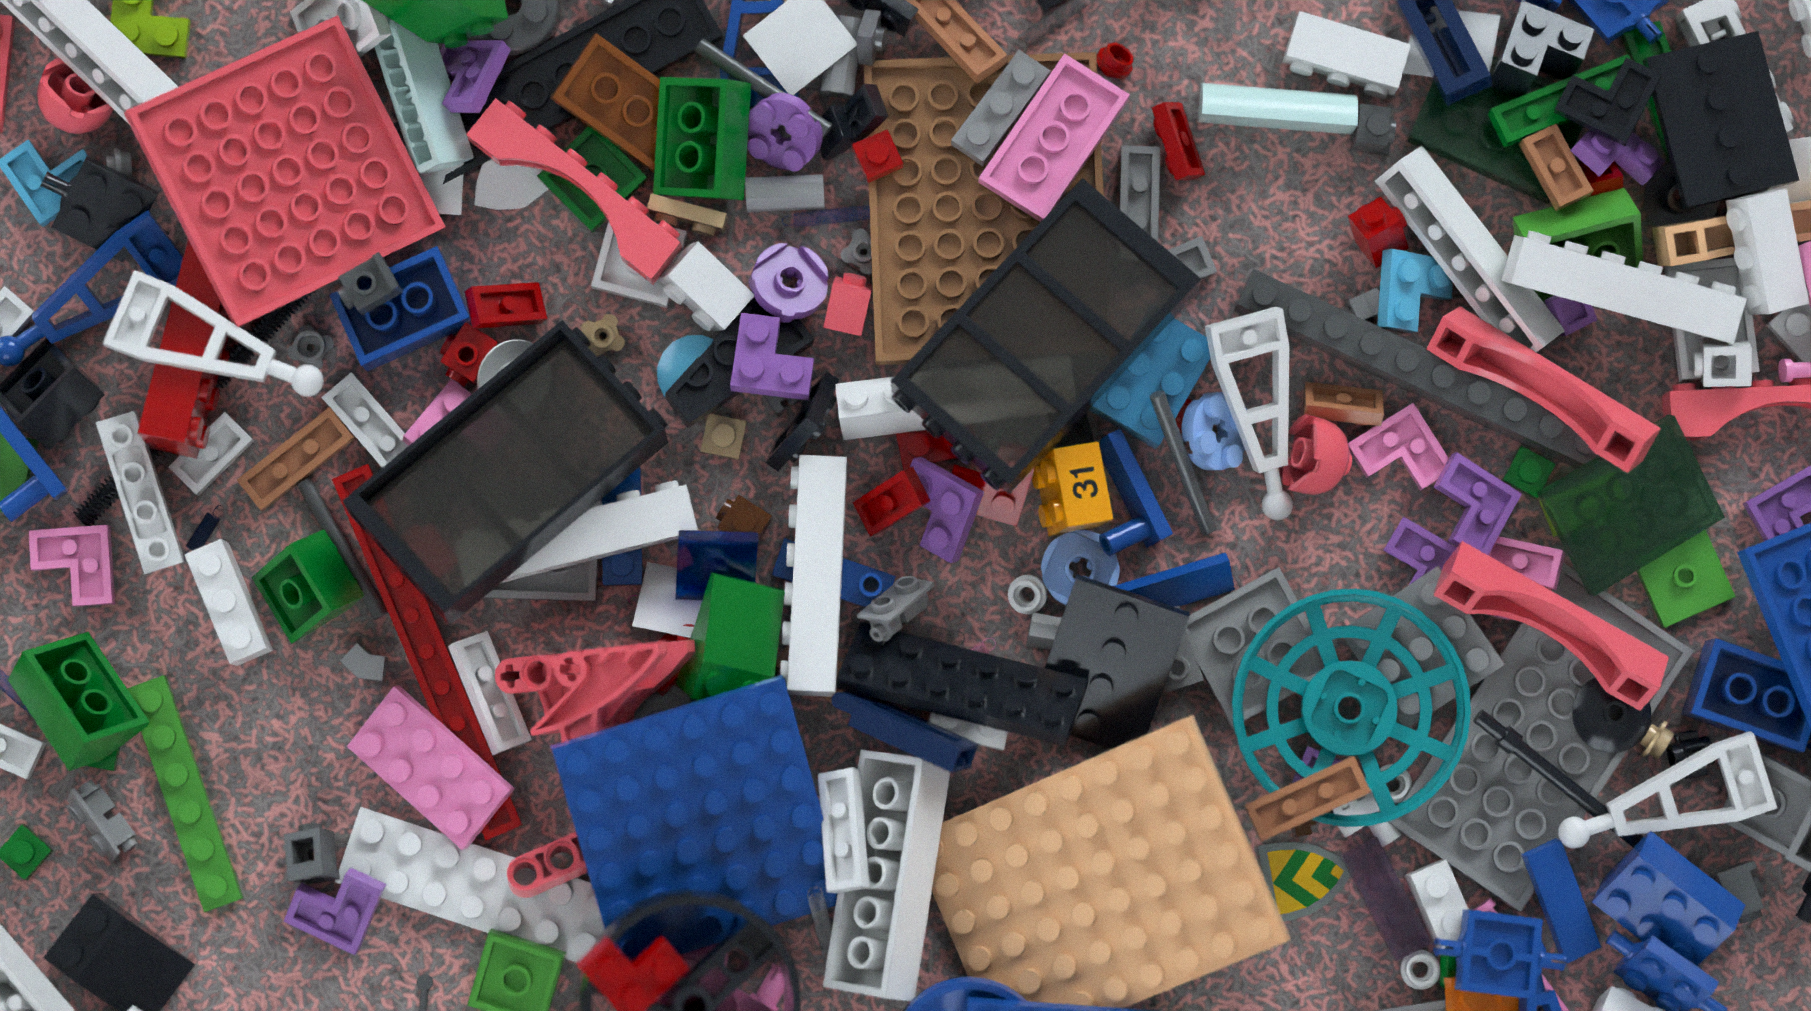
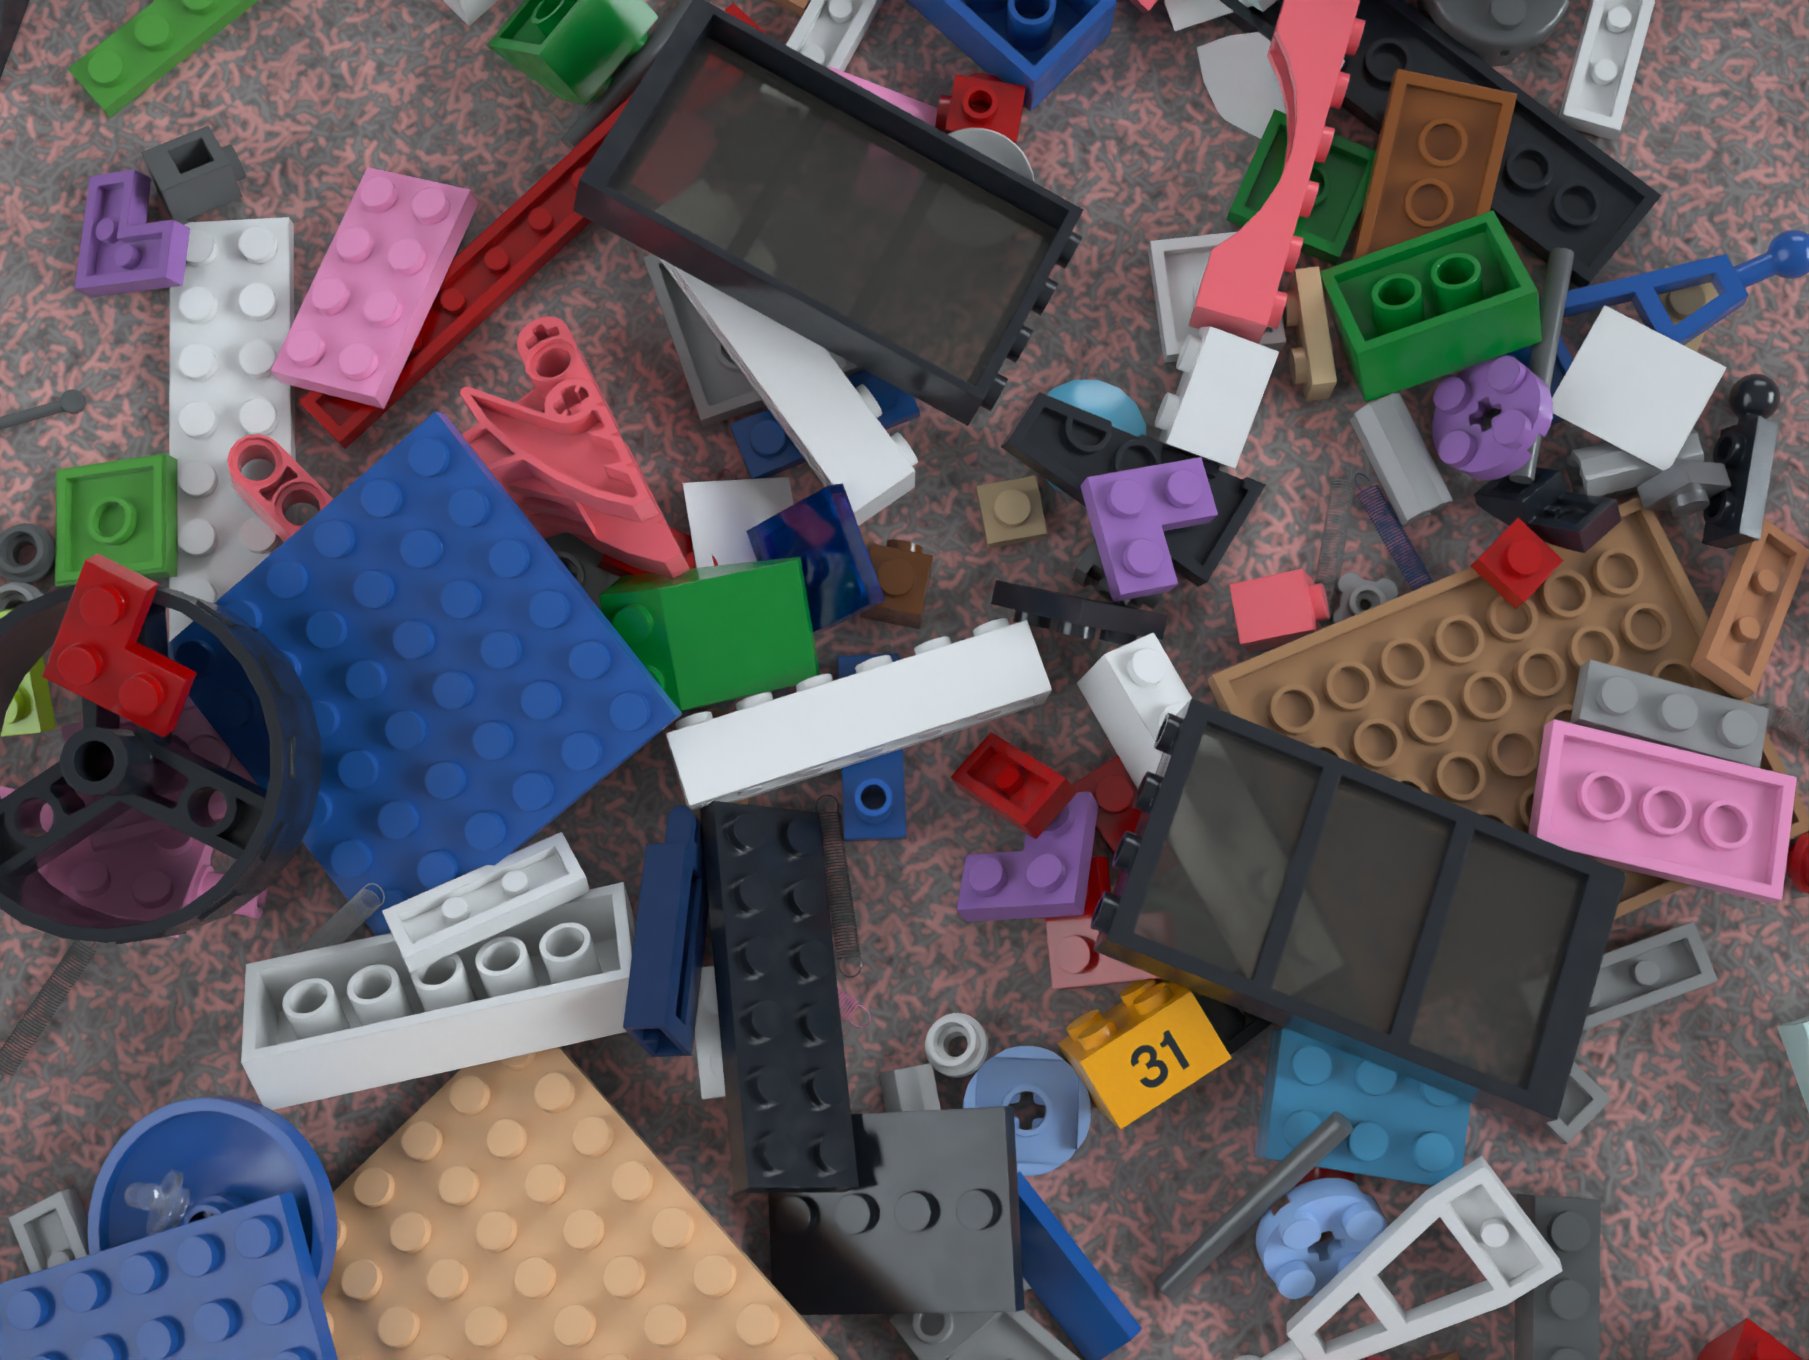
camera: 75 degrees right, 5 degrees down
(364, 664) = (492, 147): light grey piece -> none
(494, 709) = (487, 347): white plate -> none
(505, 305) = (1073, 134): red plate -> none
(609, 326) = (1087, 305): tan plate -> none
(786, 301) = (1244, 519): plate -> none
(896, 605) = (878, 862): light grey hinge -> none
(1147, 520) = (1144, 1186): blue piece -> none
(1181, 151) = (1749, 995): red plate -> none

